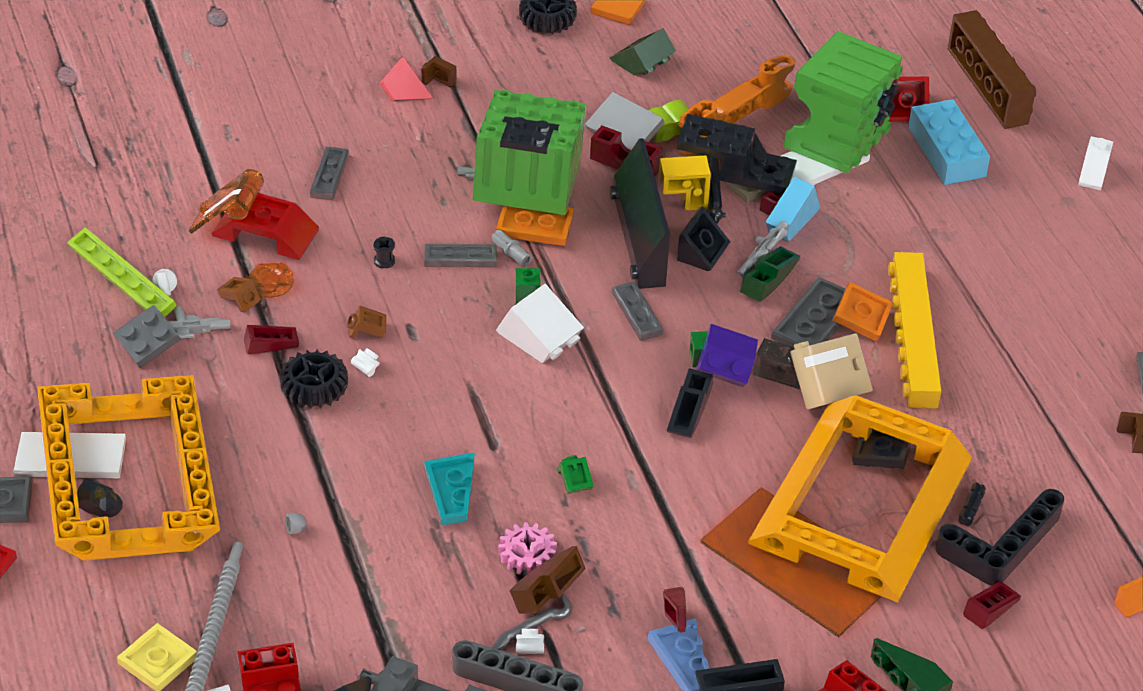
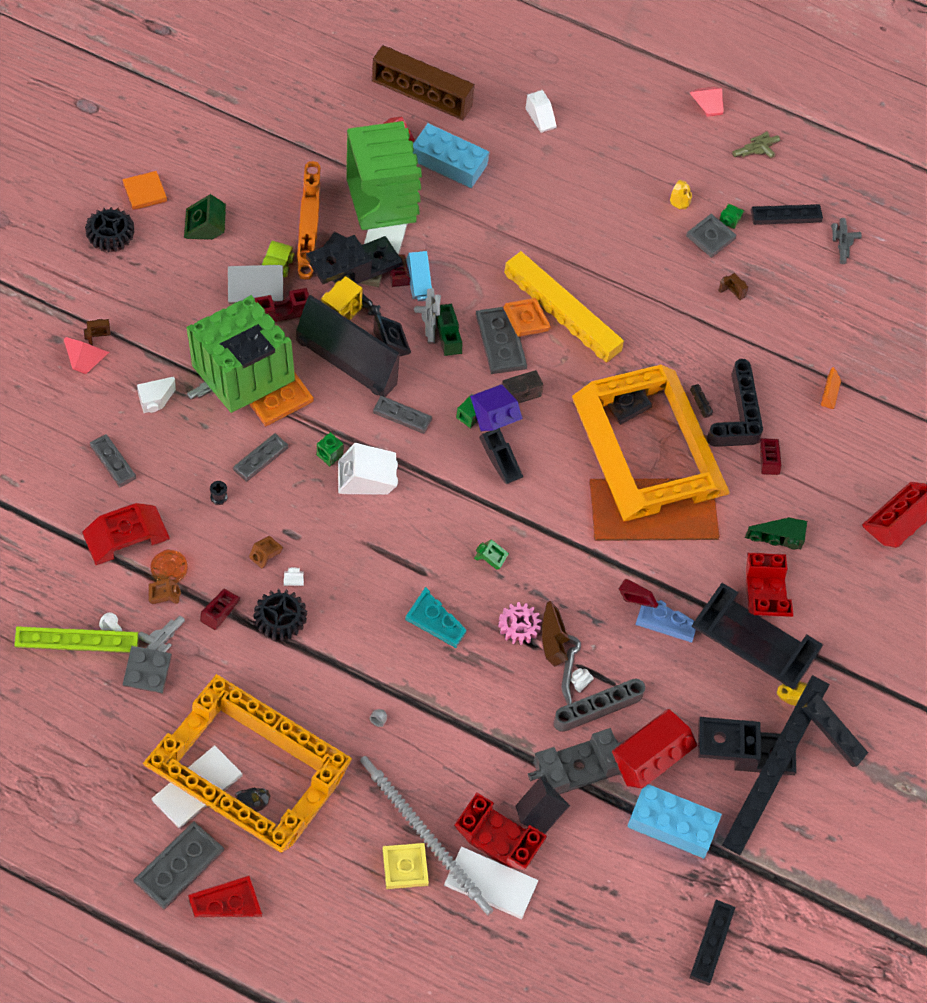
camera: 50 degrees left, 15 degrees up
(233, 199) = (88, 535): clear orange door -> none
(428, 147) = (155, 394): none -> white slope
(511, 248) = (286, 428): light grey axle -> none
(830, 370) = (557, 375): tan door -> none

